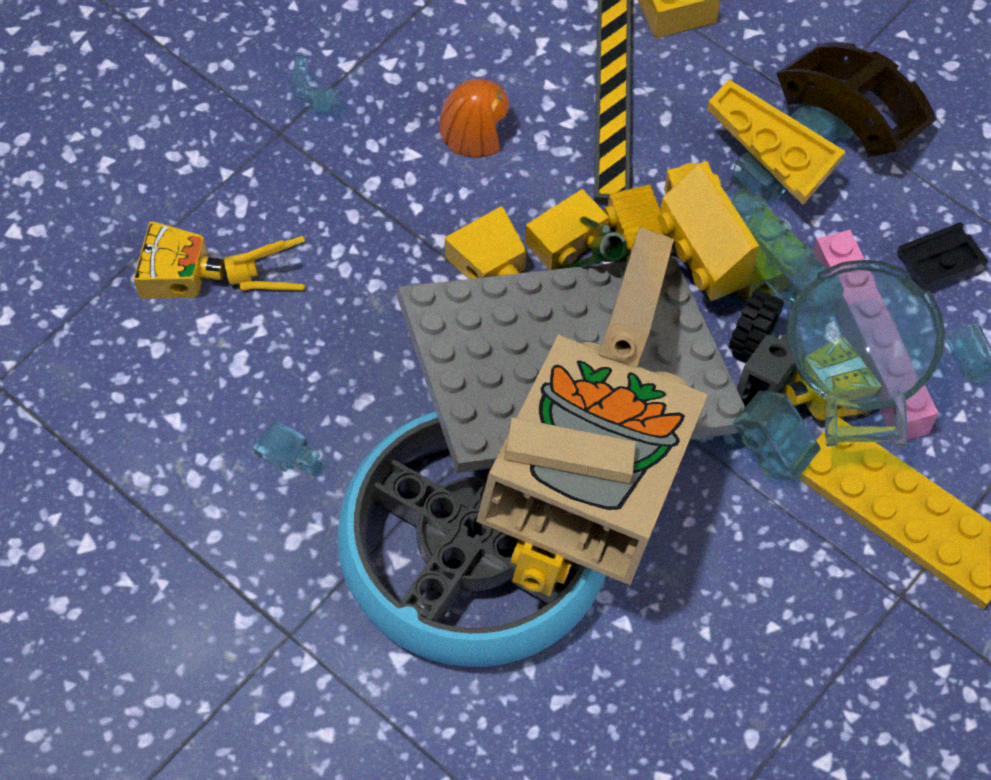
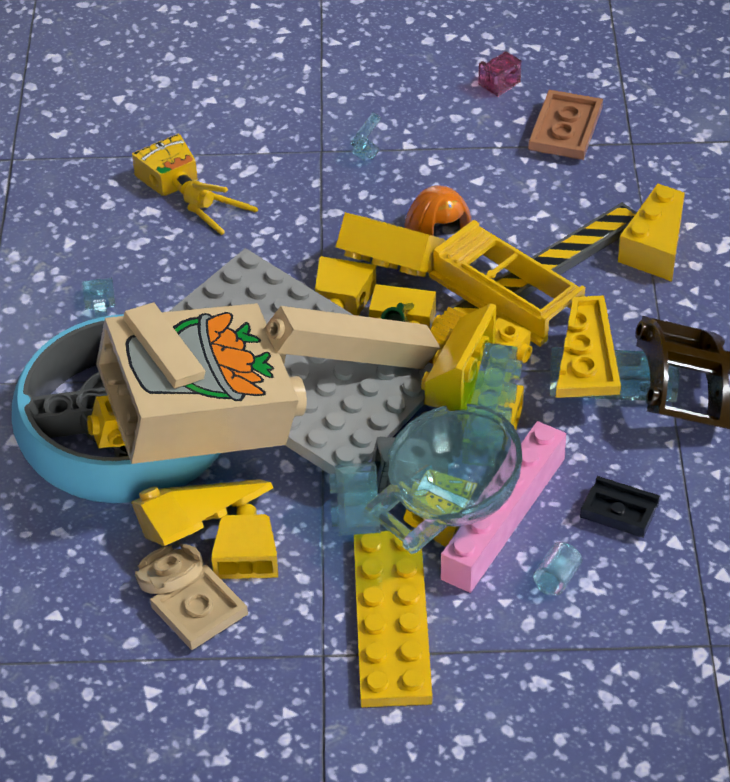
camera: 50 degrees right, 15 degrees down
(490, 175) = (387, 244): none -> yellow brick
(569, 155) = (453, 271): none -> yellow piece
(667, 583) = (179, 511): none -> yellow wedge
(708, 644) = (169, 569): none -> tan tile
(733, 560) = (245, 546): none -> yellow torso
(771, 652) = (200, 608): none -> tan plate

